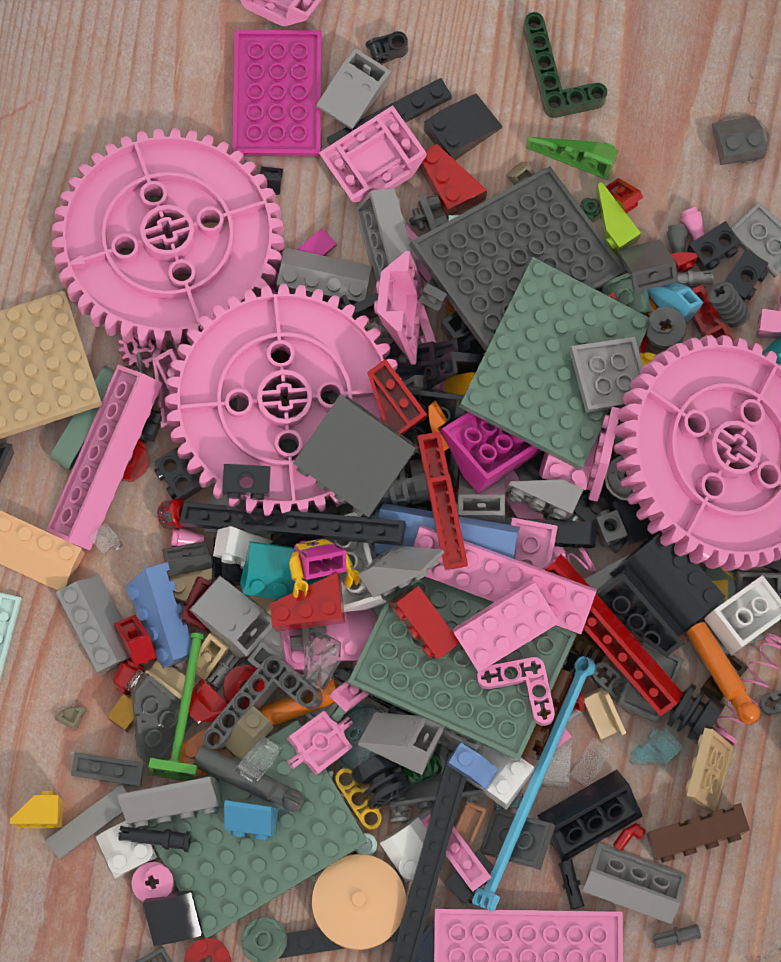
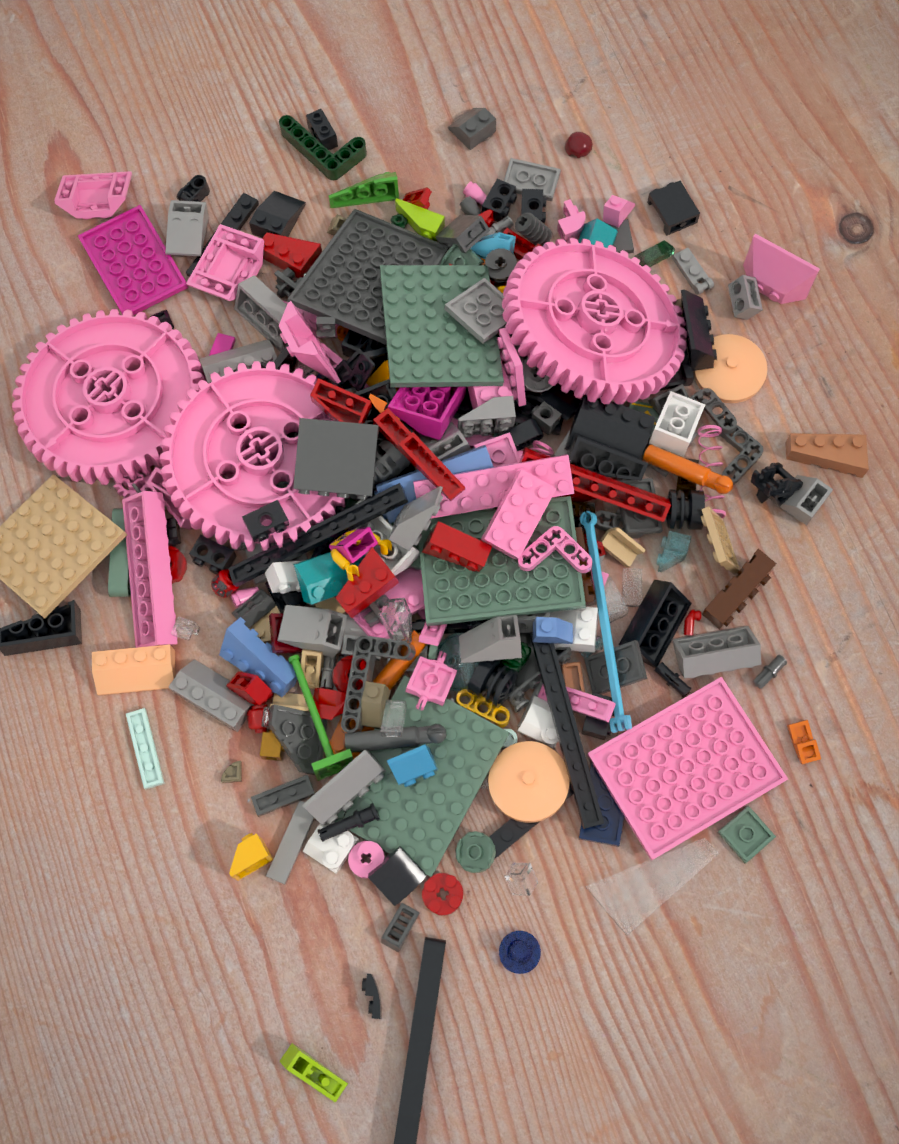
camera: 25 degrees left, 5 degrees down
(568, 51) = (322, 129): none -> black brick

